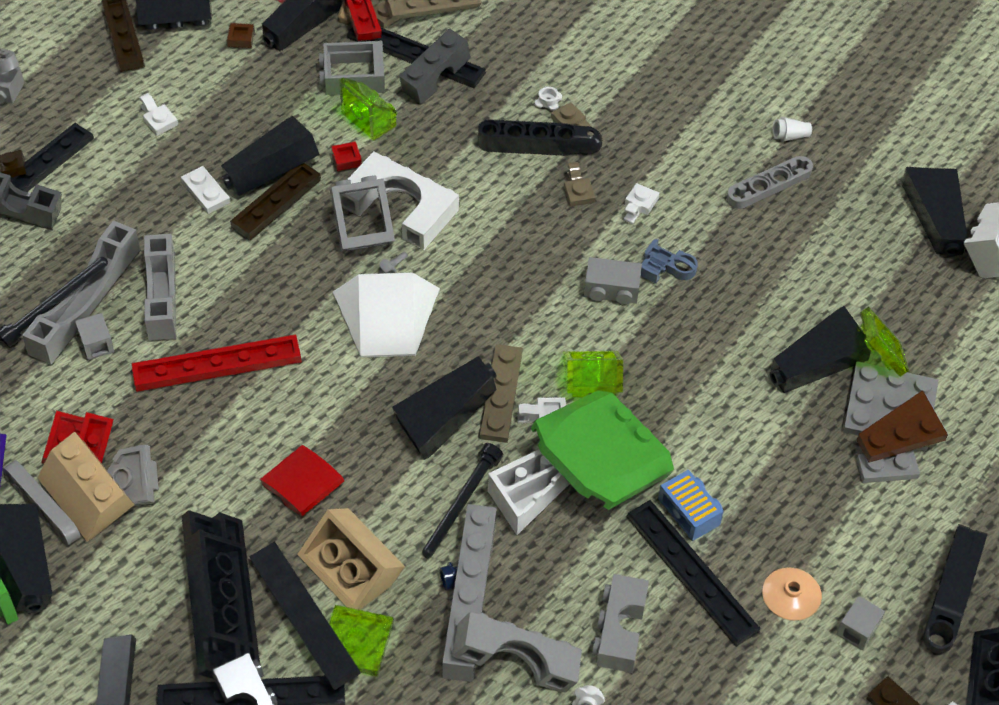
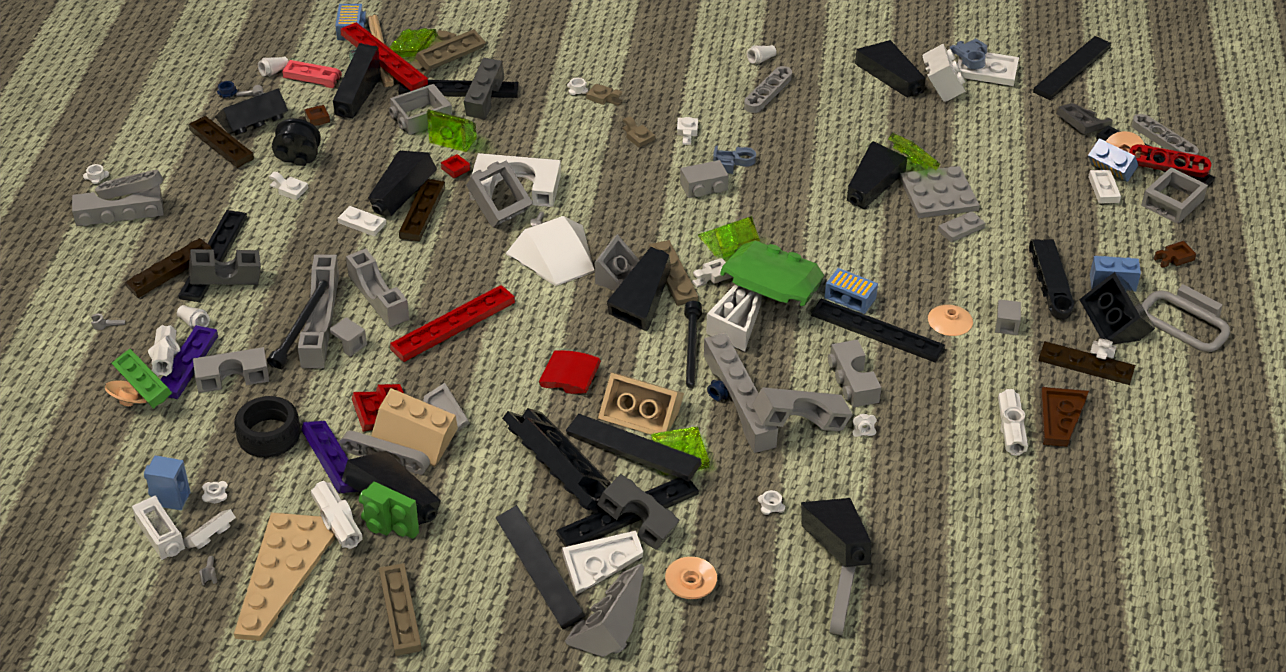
camera: 25 degrees left, 10 degrees down
(190, 63) = (296, 141): none -> black wheel
(435, 356) = (614, 264): none -> light grey slope
(537, 138) = (588, 111): black piece -> none
(903, 430) = (959, 199): reddish brown wing -> none

